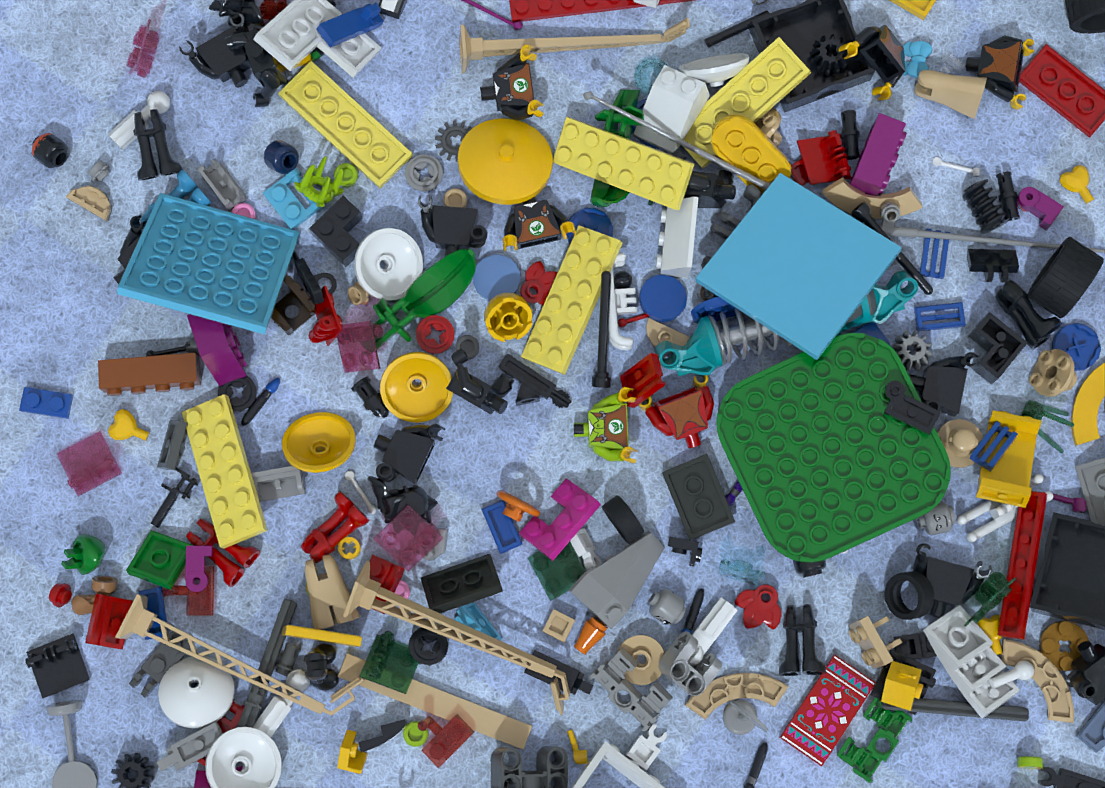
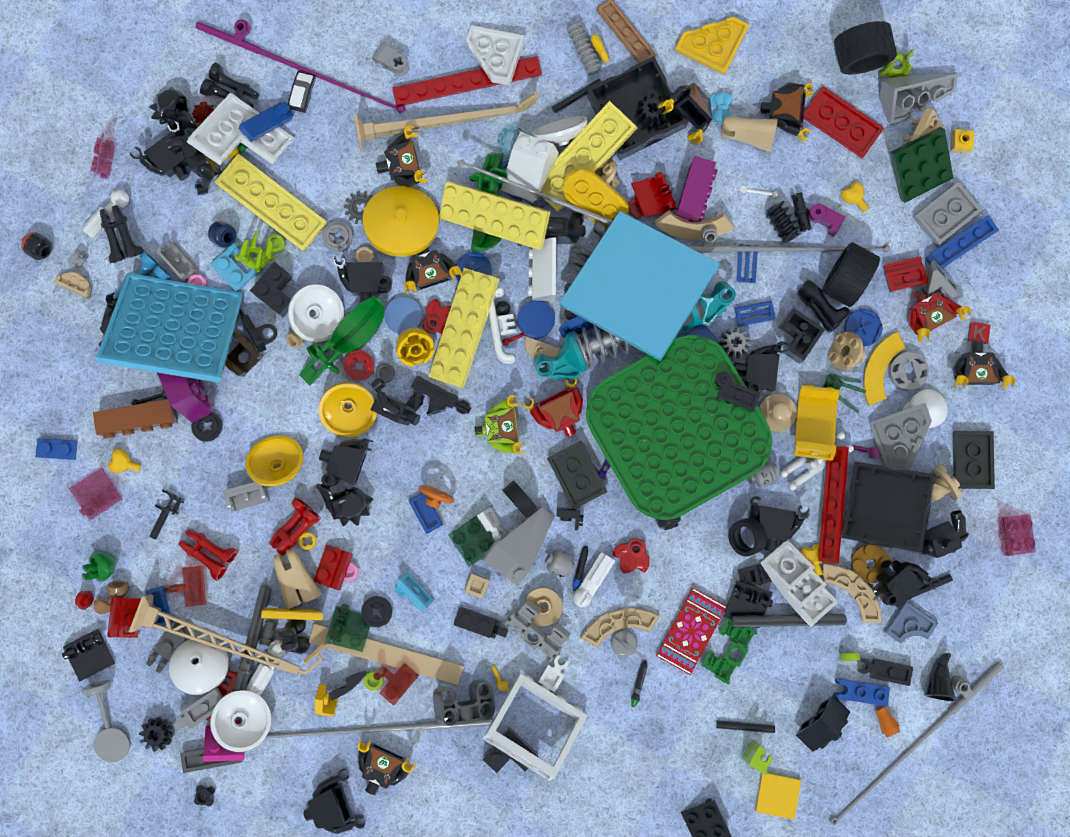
camera: 10 degrees left, 5 degrees up
(159, 560) = (159, 565): green tile -> none
(170, 452) = (159, 479): dark grey plate -> none
(195, 575) = (186, 567): magenta leg -> none
(224, 471) = (202, 490): light yellow plate -> none
(270, 388) = (226, 431): black piece -> none
(329, 323) = (273, 366): red hinge -> none
(350, 476) = (303, 484): white hinge -> none
(359, 347) = (298, 380): clear pink hinge -> none
(365, 594) = (322, 577): tan piece -> none
(370, 397) = (312, 420): black piece -> none
(408, 538) = (352, 529): clear pink hinge -> none
(440, 548) = (375, 534): light grey arm -> none
(461, 584) = (397, 562): pearl dark grey plate -> none
(578, 509) = (483, 495): dark pink plate -> none
(590, 634) = (502, 590): orange cone -> none
(601, 376) = (493, 387): black piece -> none
(643, 378) = (525, 386): red plate -> none
(678, 655) = (590, 614): light grey piece -> none
(741, 571) = (615, 530): clear light blue piece -> none
(810, 663) = (660, 598): black piece -> none
(850, 134) = (673, 173): black pin -> none
(863, 214) = (687, 237): black piece -> none
(874, 651) = (723, 583): tan plate -> none
(902, 685) = (747, 609): yellow head -> none
(990, 595) = (810, 530): clear green hinge -> none
(993, 261) = (793, 266): black hinge -> none
(1002, 432) = (810, 401): blue tile -> none
(1023, 670) = (839, 586): white bar -> none

